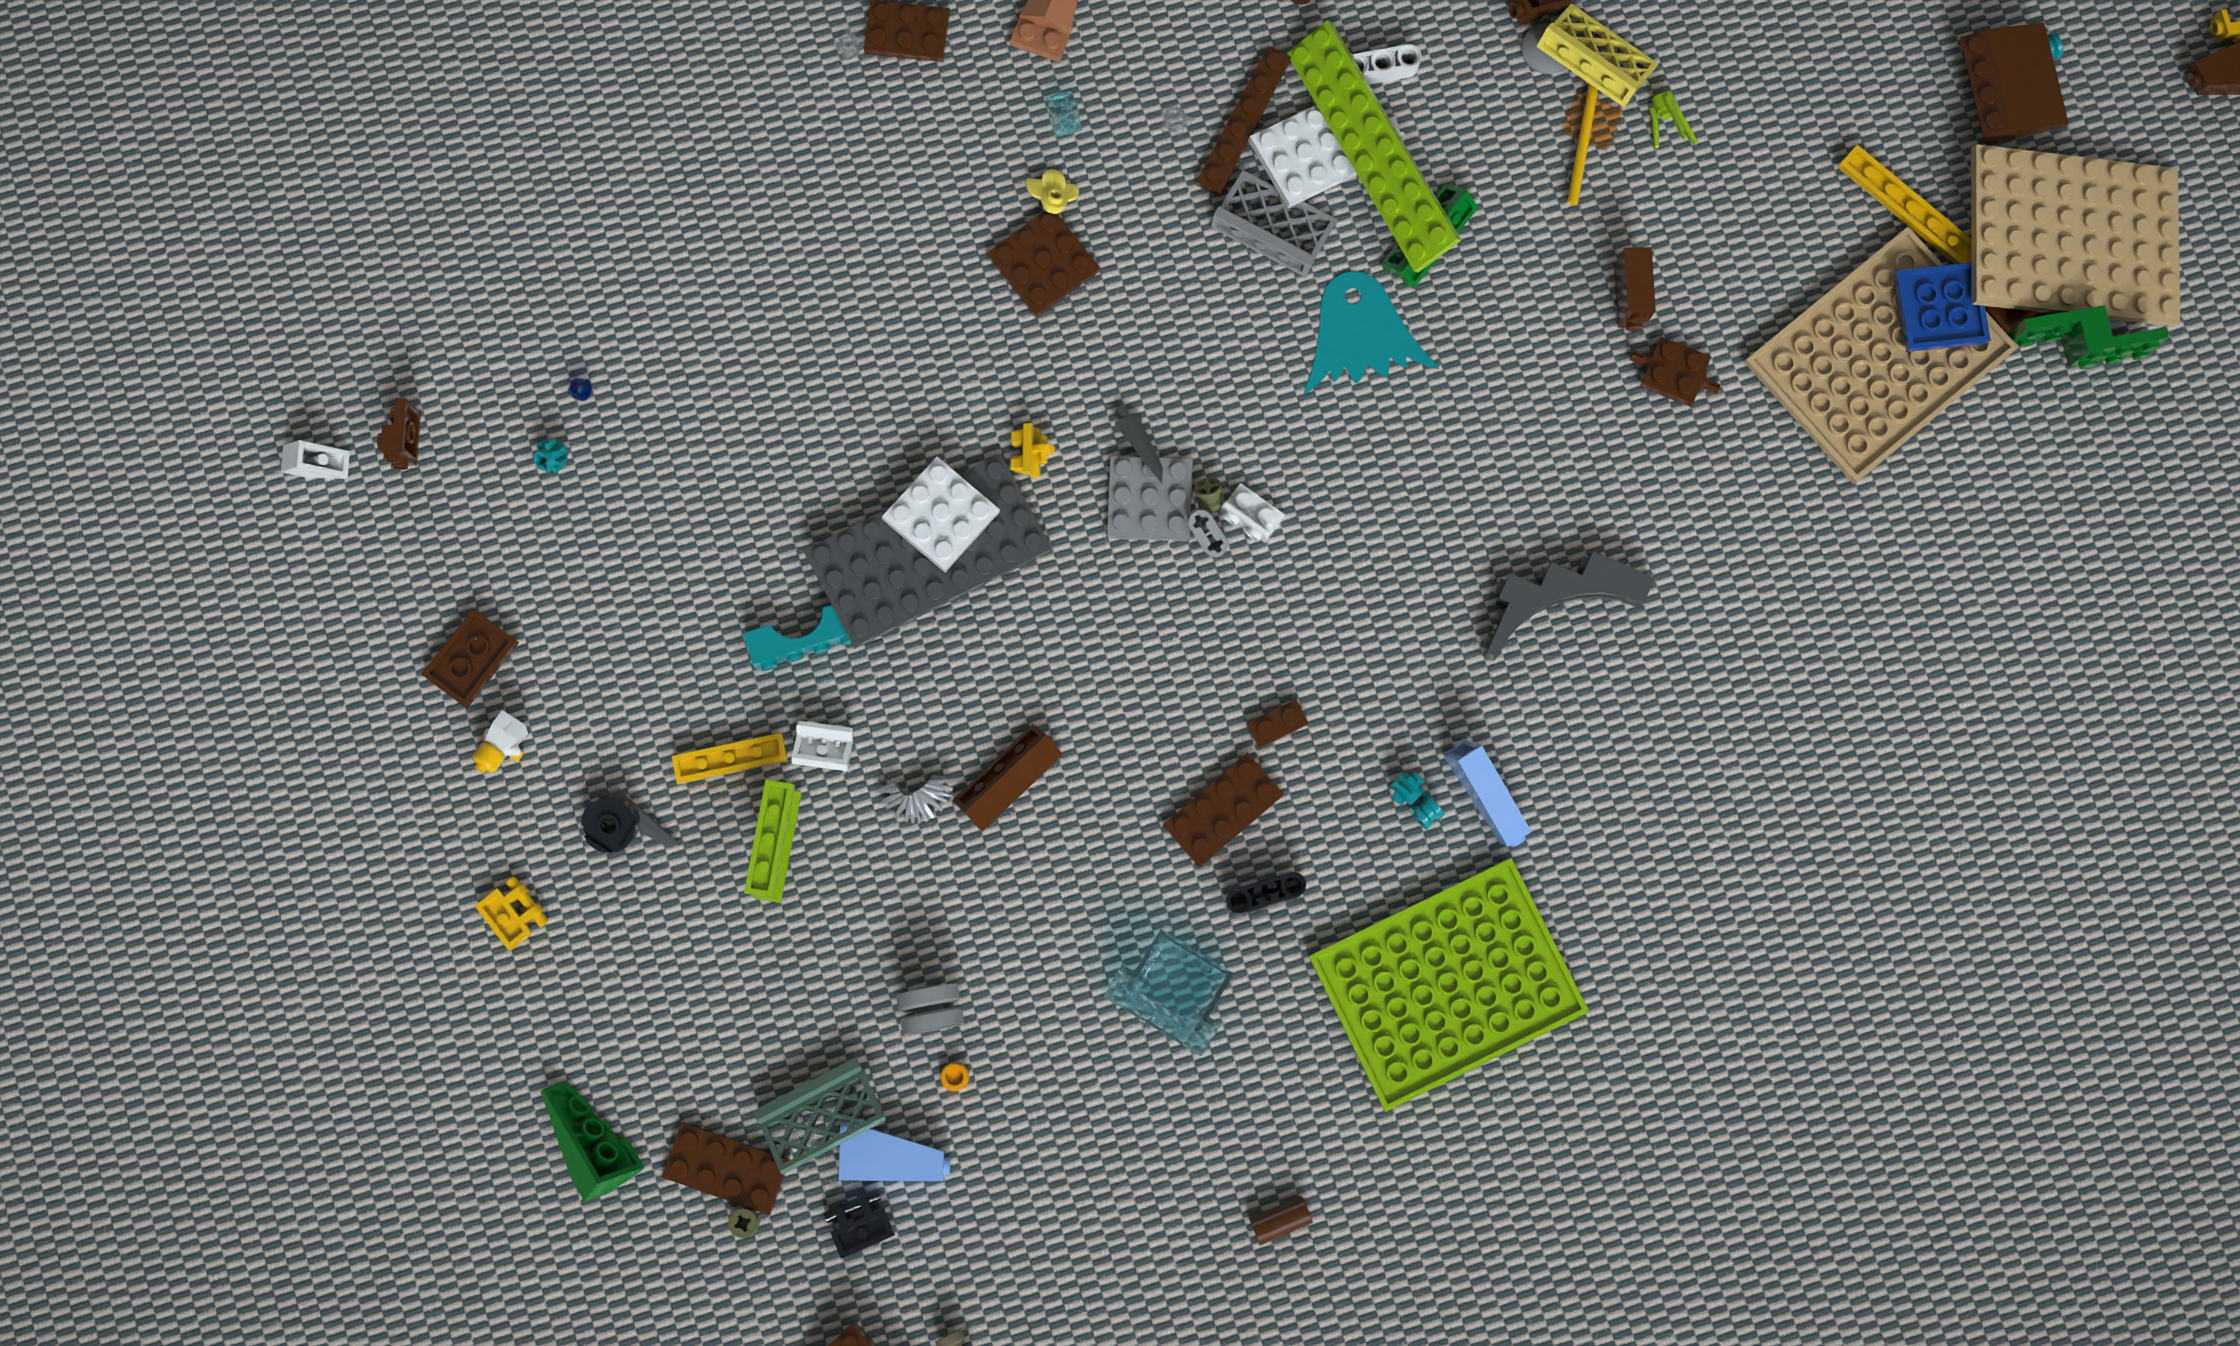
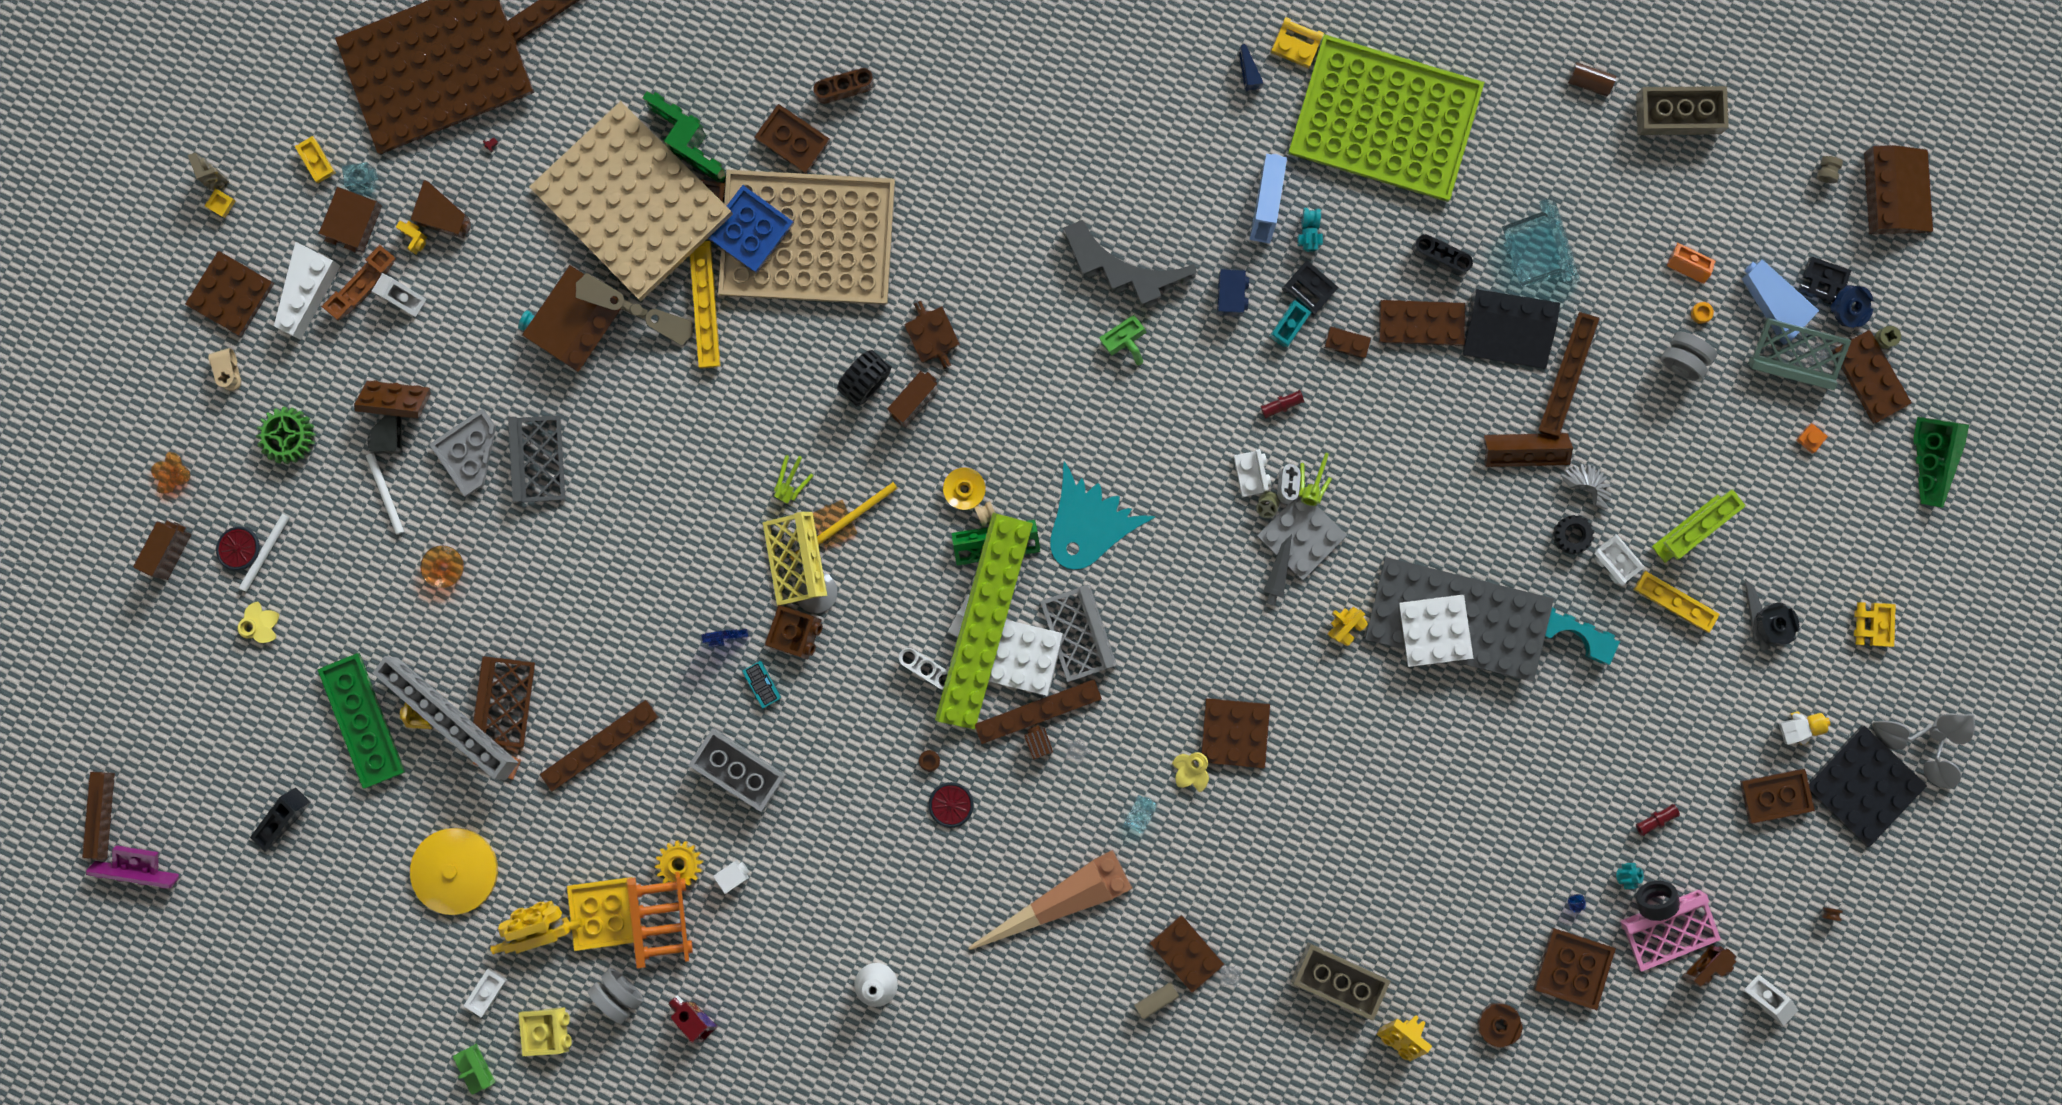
camera: 140 degrees left, 5 degrees up
(321, 592) = (1832, 914): none -> reddish brown bush
(359, 861) = (1957, 727): none -> light grey plant
(389, 747) = (1865, 786): none -> black plate
(488, 450) = (1688, 903): none -> bright pink fence
(521, 456) = (1661, 911): none -> black tyre
(530, 327) = (1574, 968): none -> reddish brown plate
(568, 228) = (1505, 1036): none -> reddish brown plate
(568, 533) = (1657, 820): none -> dark red pin
(637, 126) = (1405, 1038): none -> yellow plate
(733, 1047) = (1811, 438): none -> orange plate
(742, 122) = (1340, 981): none -> dark tan brick
(821, 1215) = (1842, 306): none -> dark blue plate
(883, 716) = (1564, 544): none -> black tyre
(1010, 1119) = (1691, 263): none -> orange slope
(1032, 888) = (1569, 374): none -> reddish brown plate
(1131, 881) = (1510, 328): none -> black slope
(1160, 1267) = (1682, 110): none -> dark tan brick
(1178, 540) = (1312, 494): none -> lime plant
(1217, 91) = (1038, 742): none -> reddish brown brick
(1284, 605) = (1282, 404): none -> dark red pin
(1350, 689) = (1290, 324): none -> teal brick
(1363, 752) = (1315, 283): none -> black plate
(1434, 665) = (1231, 292): none -> dark blue brick
(1464, 251) = (984, 513): none -> tan wheel
(1496, 530) = (1124, 336): none -> bright green plate
(1508, 243) = (964, 477): none -> yellow dish
(1603, 972) = (1295, 49): none -> yellow plate
(1623, 903) = (1250, 73): none -> dark blue slope
(1699, 264) = (864, 378): none -> black tyre
(1988, 433) = (792, 138): none -> reddish brown plate
(2001, 518) = (835, 93): none -> reddish brown beam
(2016, 113) = (599, 293): none -> dark tan piece

